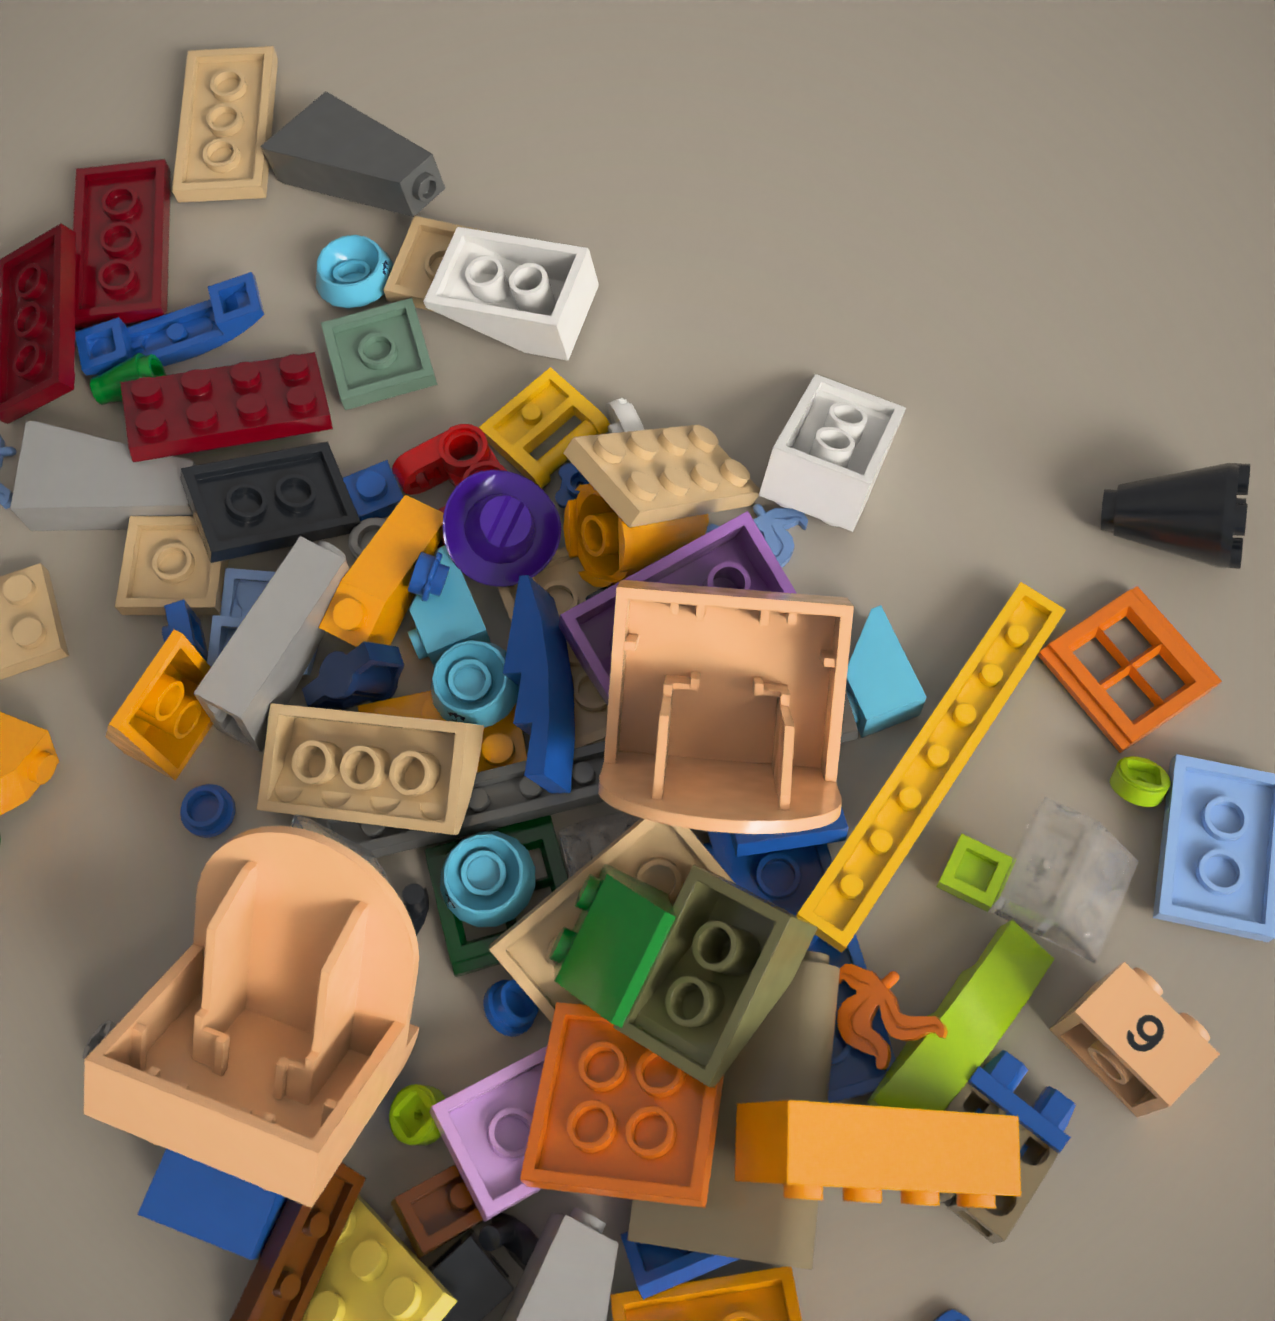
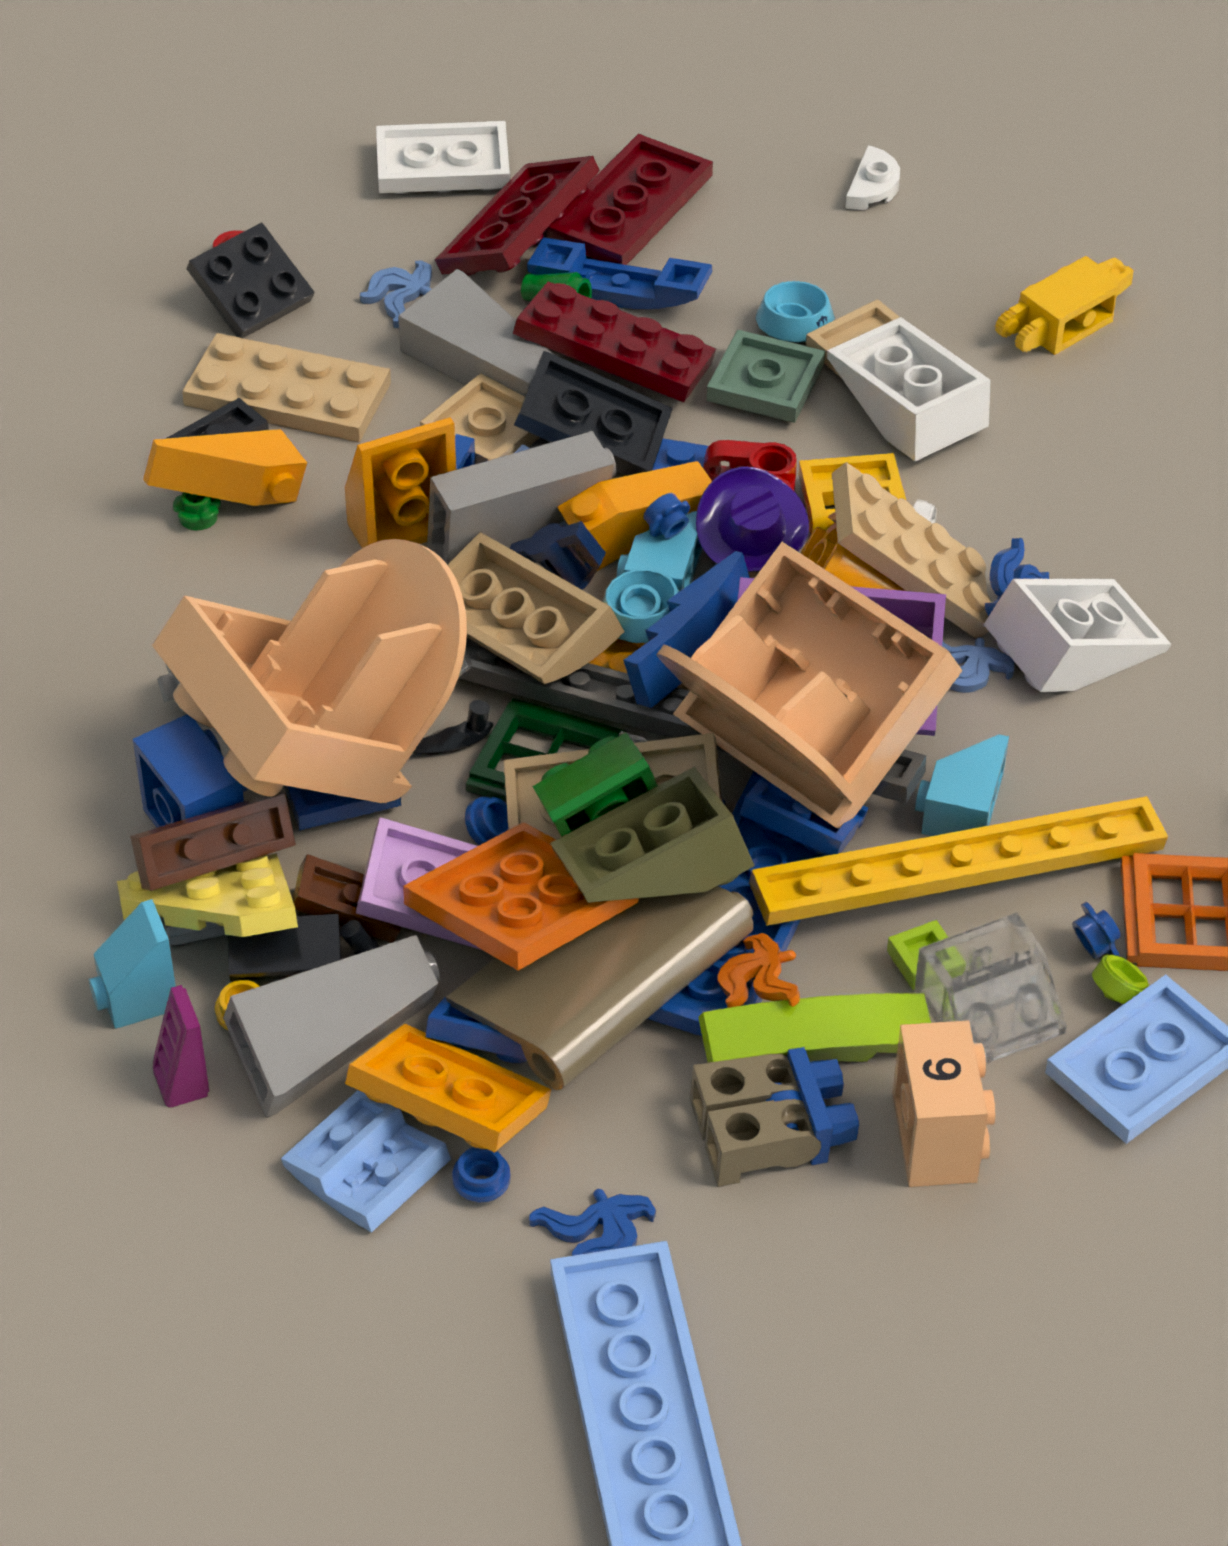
camera: 30 degrees right, 20 degrees down
(224, 124) = (783, 165): tan plate -> none
(308, 81) = (874, 180): none -> white plate
(353, 158) = (861, 234): dark grey slope -> none
(411, 1116) = (356, 844): lime tile -> none
(487, 879) = (541, 725): medium azure hat -> none
(569, 123) = (1066, 305): none -> yellow hinge
(746, 436) = (1006, 567): none -> blue piece
(876, 1150) = (673, 1007): light orange wedge -> none
(1088, 747) = (1096, 932): none -> blue plate

